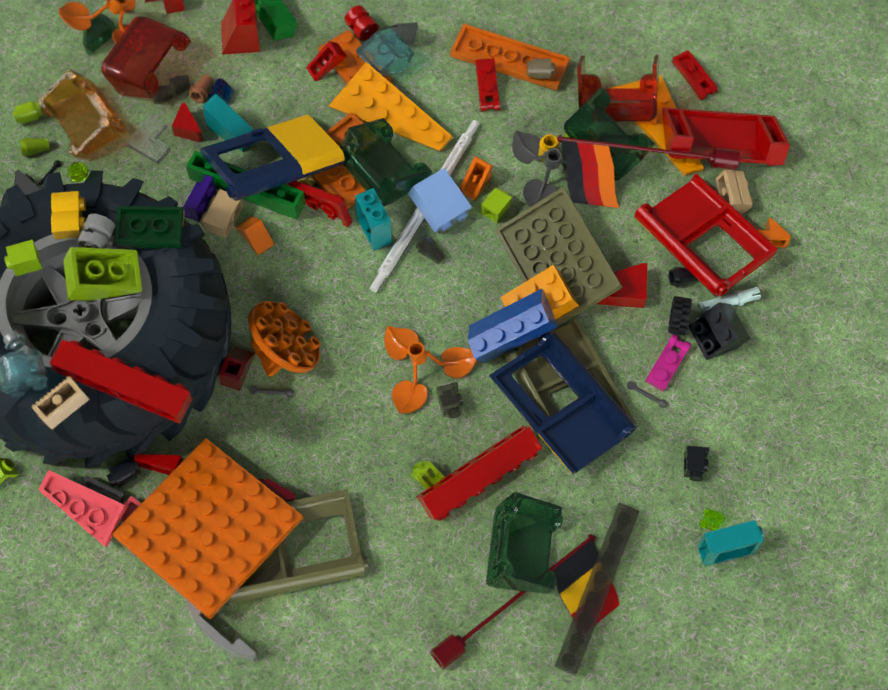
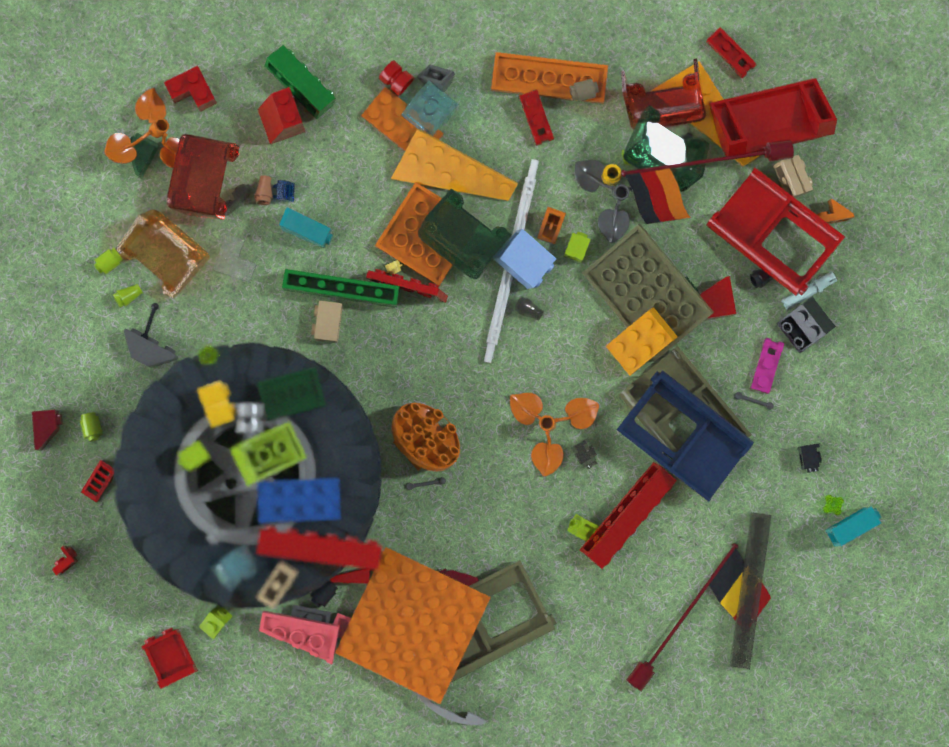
camera: 15 degrees left, 20 degrees up
(118, 329) = (299, 500): none -> blue plate
(186, 126) = (263, 237): red slope -> none
(199, 198) = (300, 312): dark purple bracket -> none
(236, 368) = (390, 470): dark red slope -> none
(255, 234) = (363, 333): orange slope -> none
(299, 141) = (380, 236): piece -> none
(336, 56) = (384, 124): red slope -> none
(373, 217) = (471, 297): teal window -> none
(511, 327) = (623, 375): blue slope -> none
(523, 544) = (680, 572): clear green windscreen -> none
(679, 315) = (769, 321): black tyre -> none

